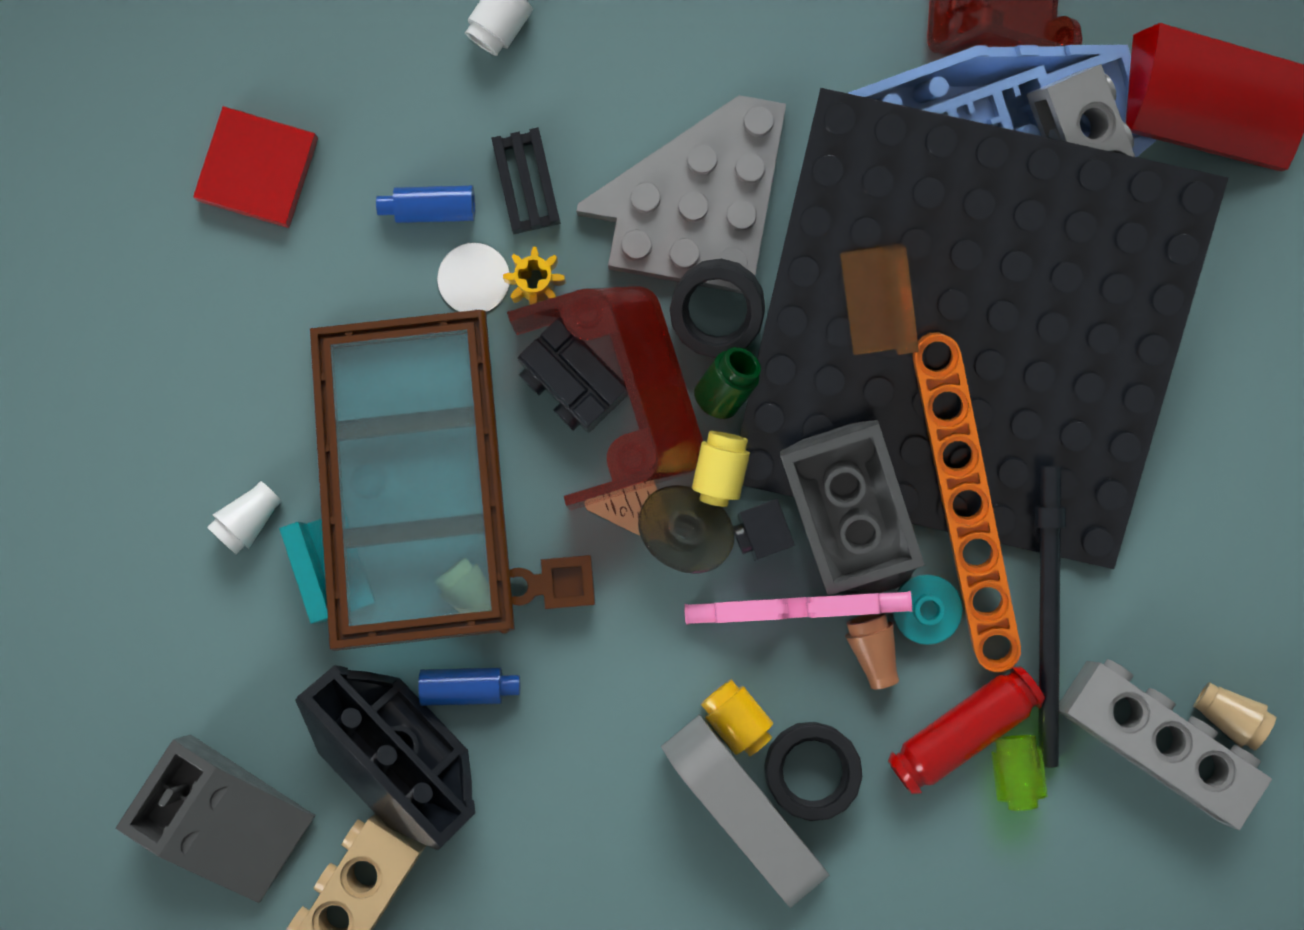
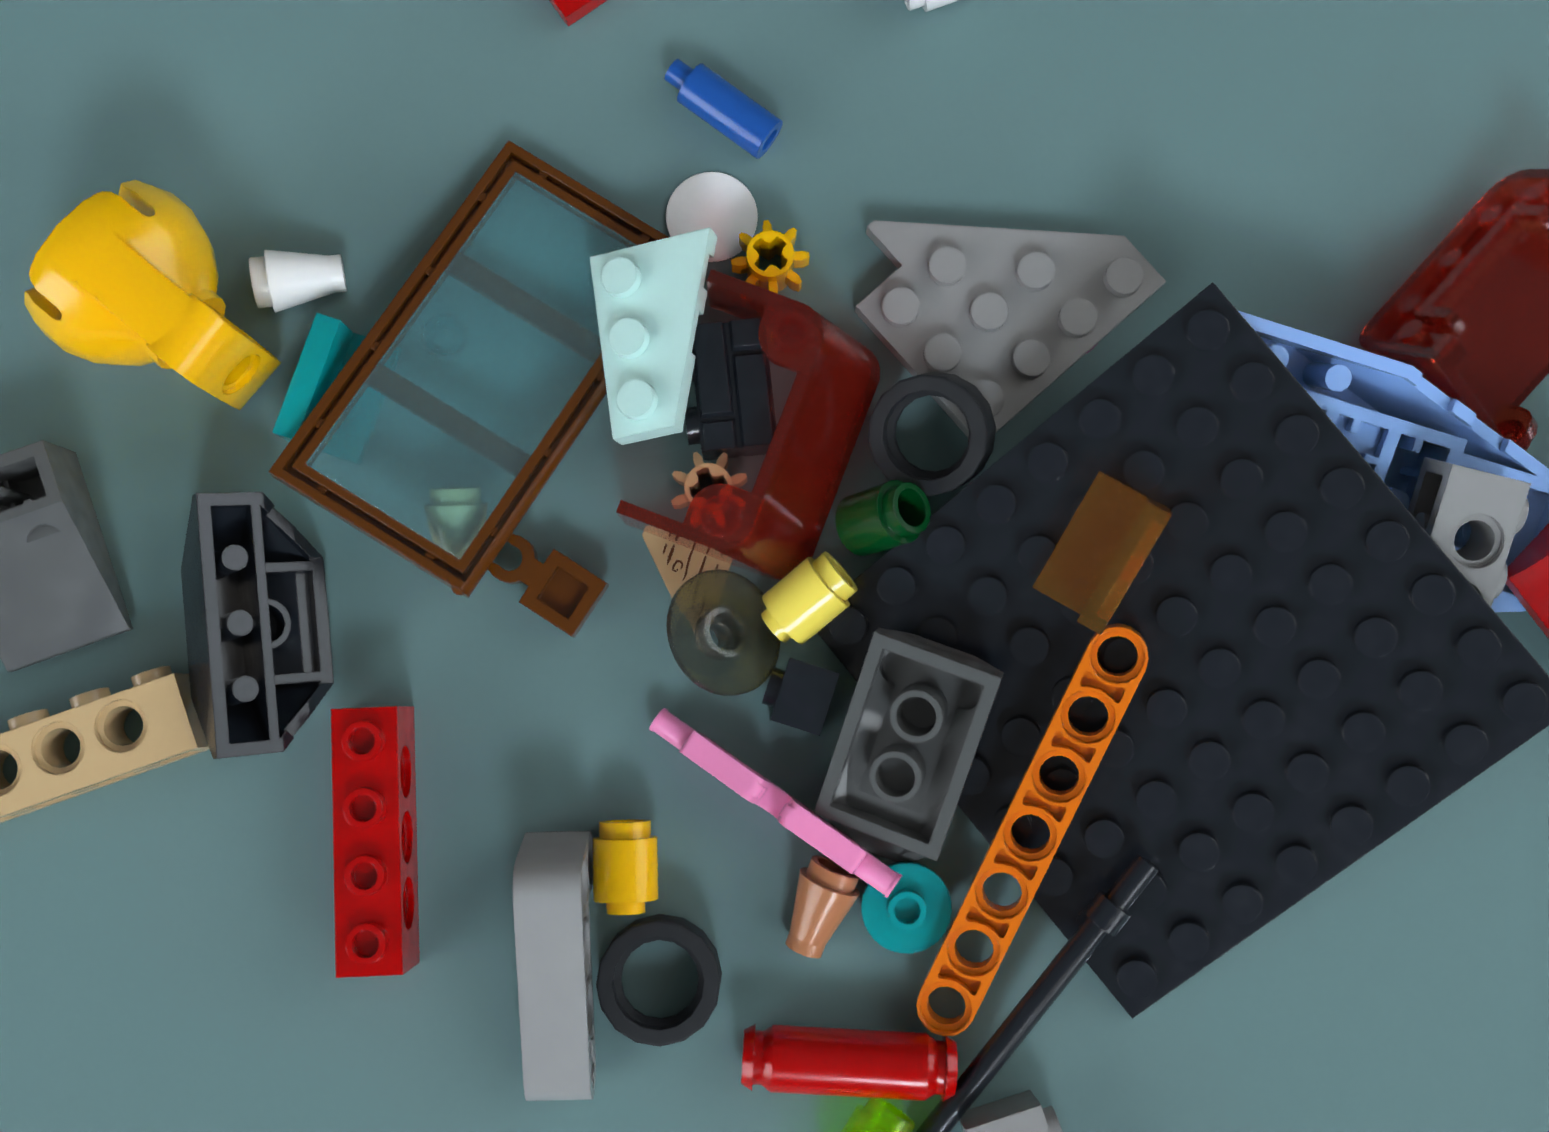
camera: 35 degrees right, 0 degrees up
(159, 598) = (137, 287): none -> yellow piece
(466, 686) = (380, 617): blue cylinder -> none
(492, 376) = (647, 330): none -> light aqua wing
(517, 142) = (861, 113): black tile -> none
(573, 824) = (374, 841): none -> red brick
(604, 435) = (703, 470): none -> tan gear

